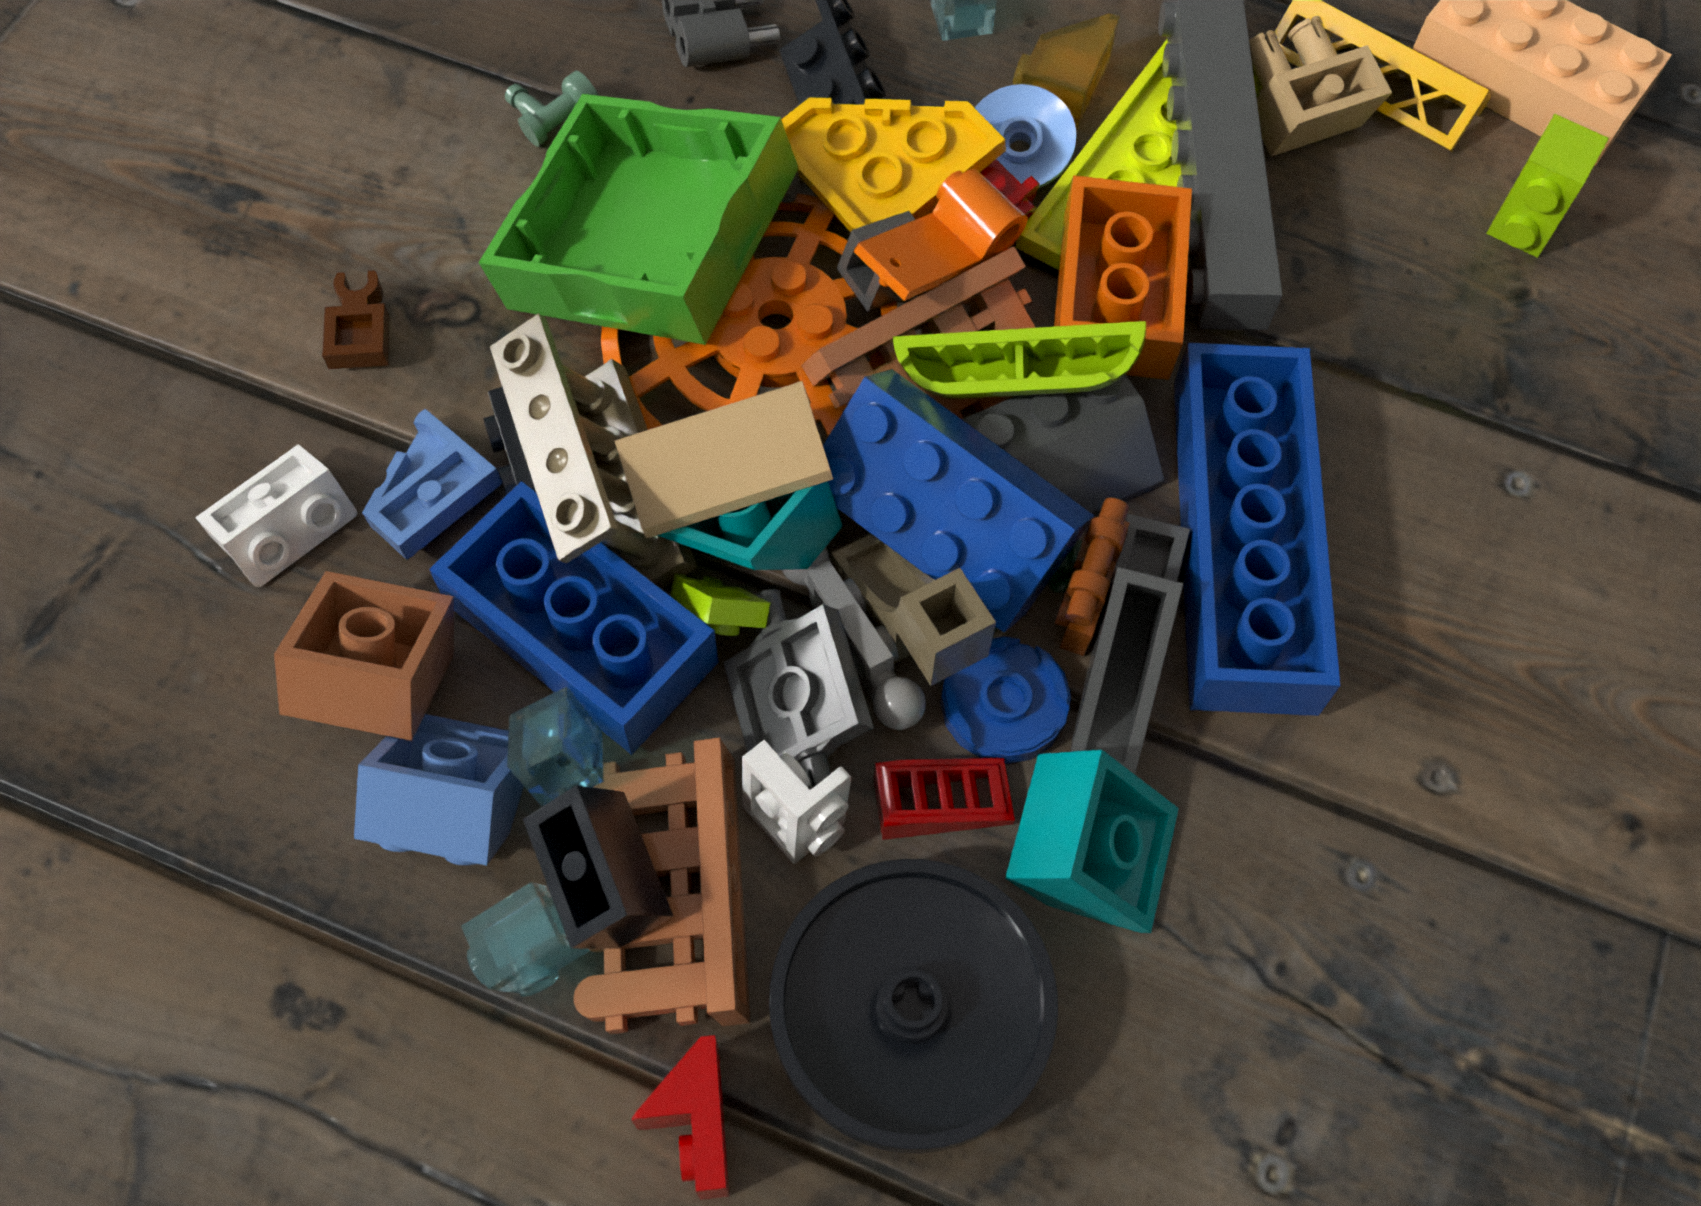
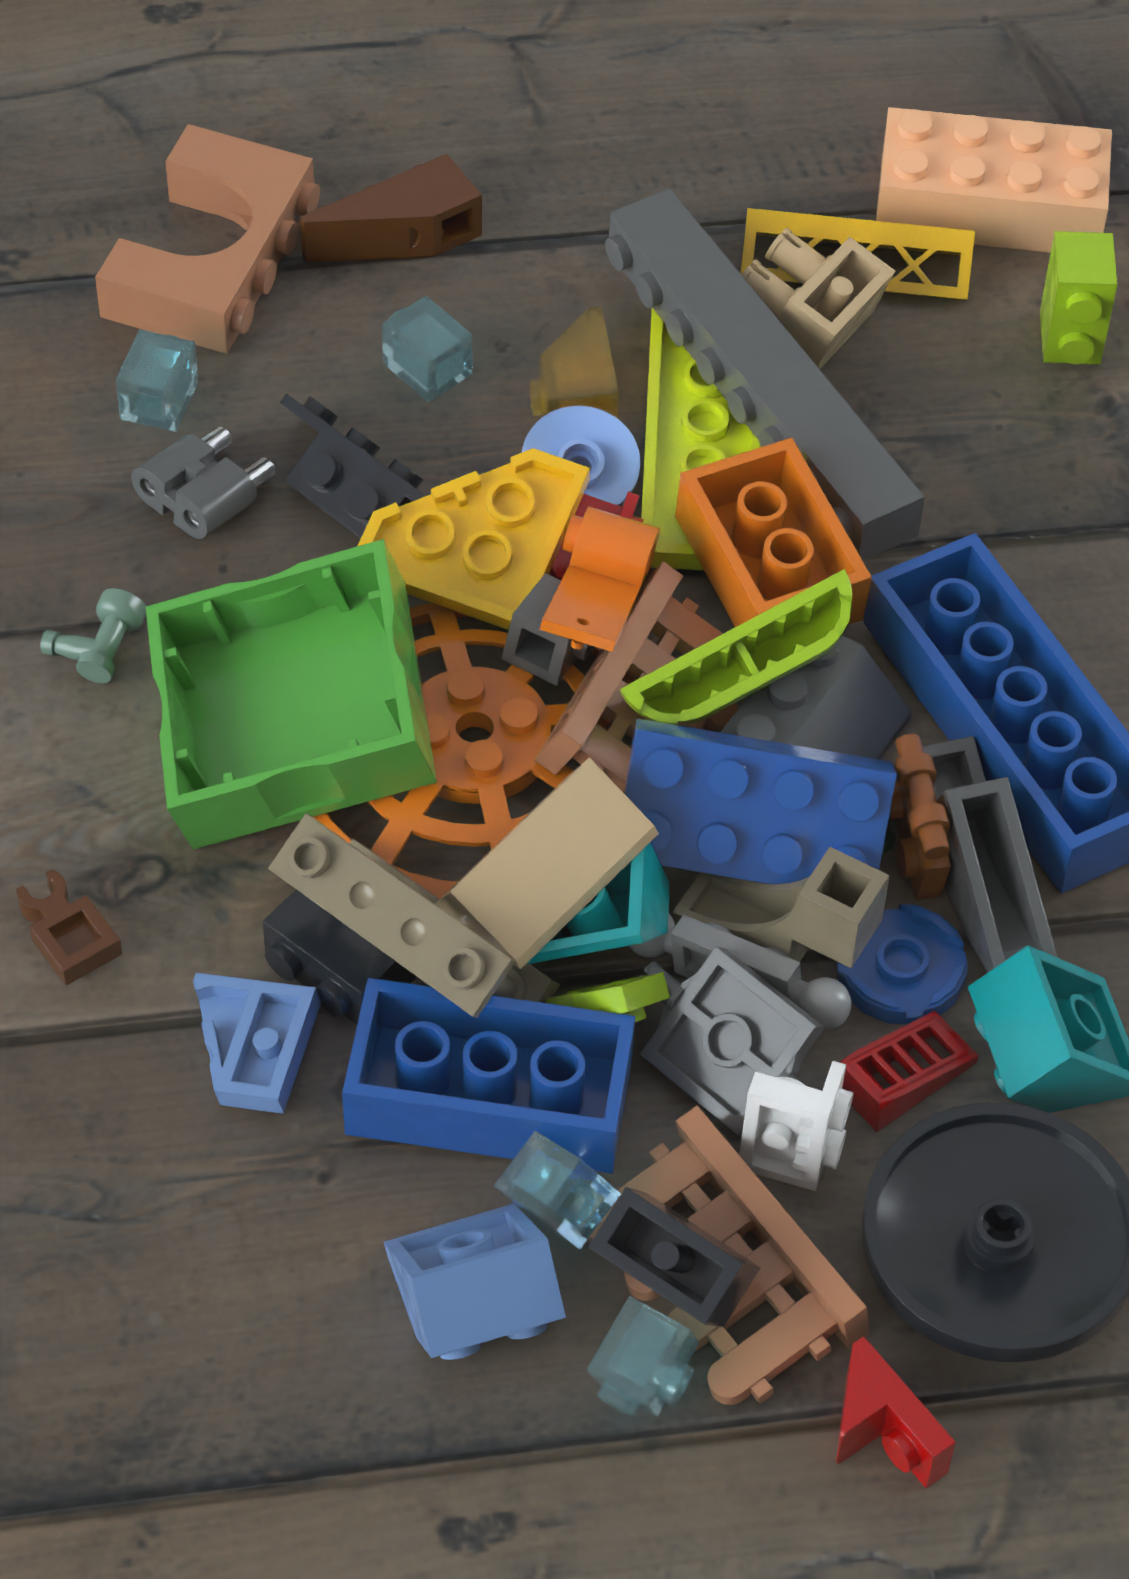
camera: 30 degrees left, 10 degrees down
(278, 515) = (127, 1132): white bracket -> none
(365, 655) = (333, 1198): nougat brick -> none

